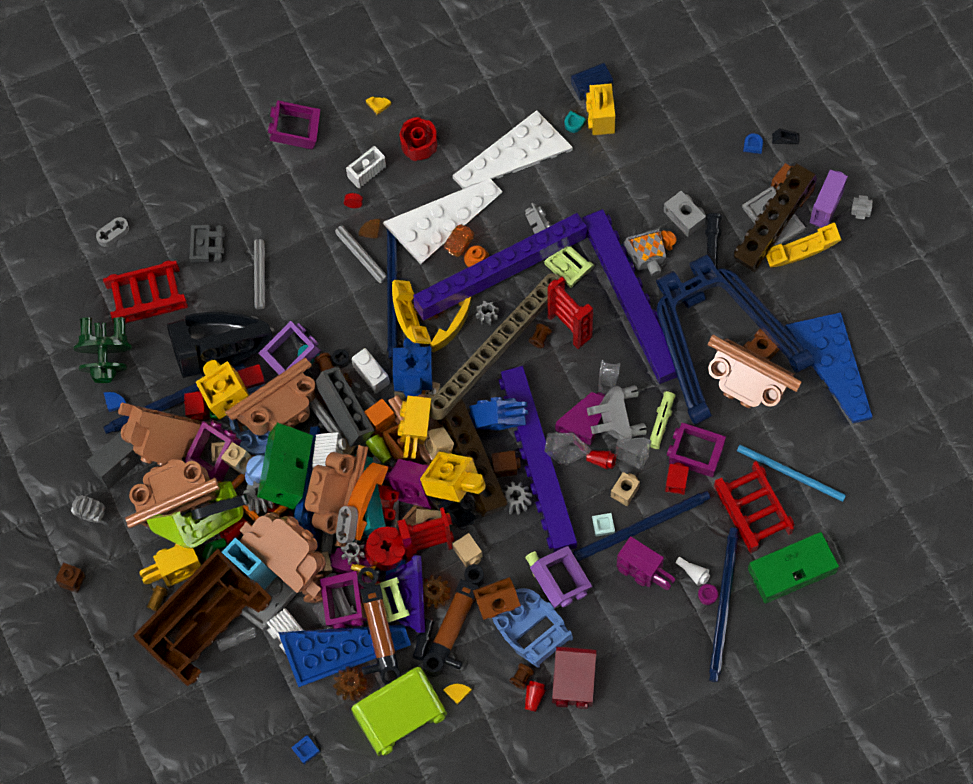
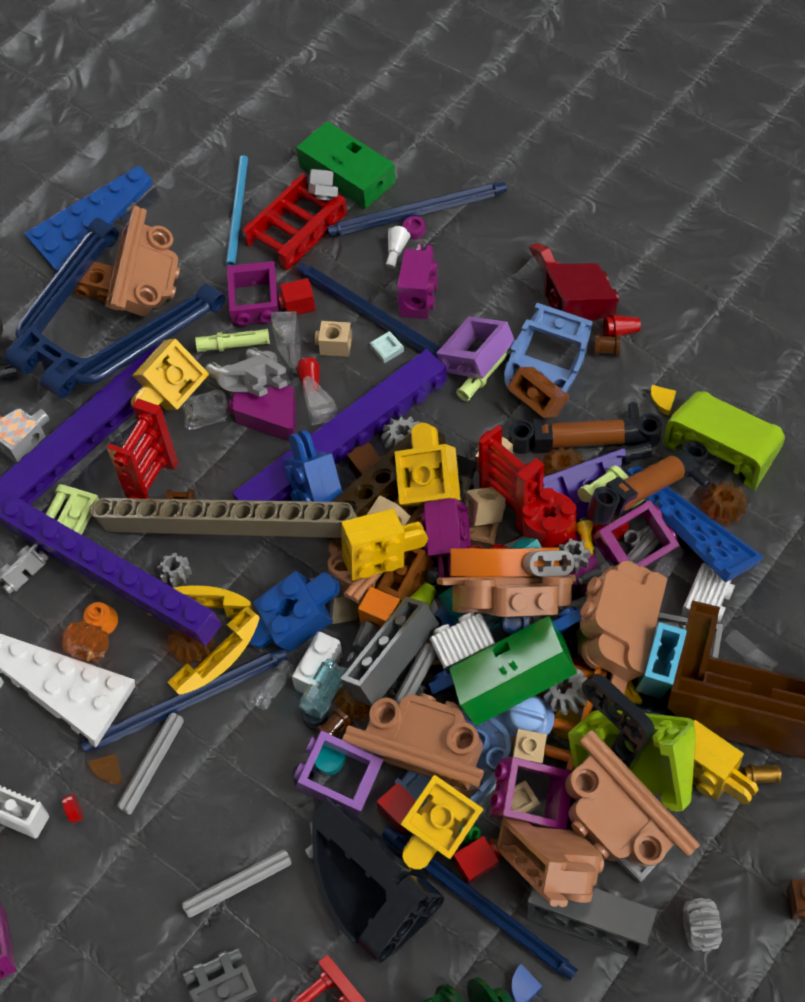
camera: 115 degrees left, 10 degrees down
(334, 568) = (585, 578): none -> dark grey piece
(350, 367) = (318, 700): none -> clear light blue hinge
(374, 342) = (274, 684): none -> clear axle
(613, 667) = (542, 255): none -> red slope
(636, 356) = (169, 376): none -> yellow brick
(770, 535) = (321, 184): none -> light grey bracket

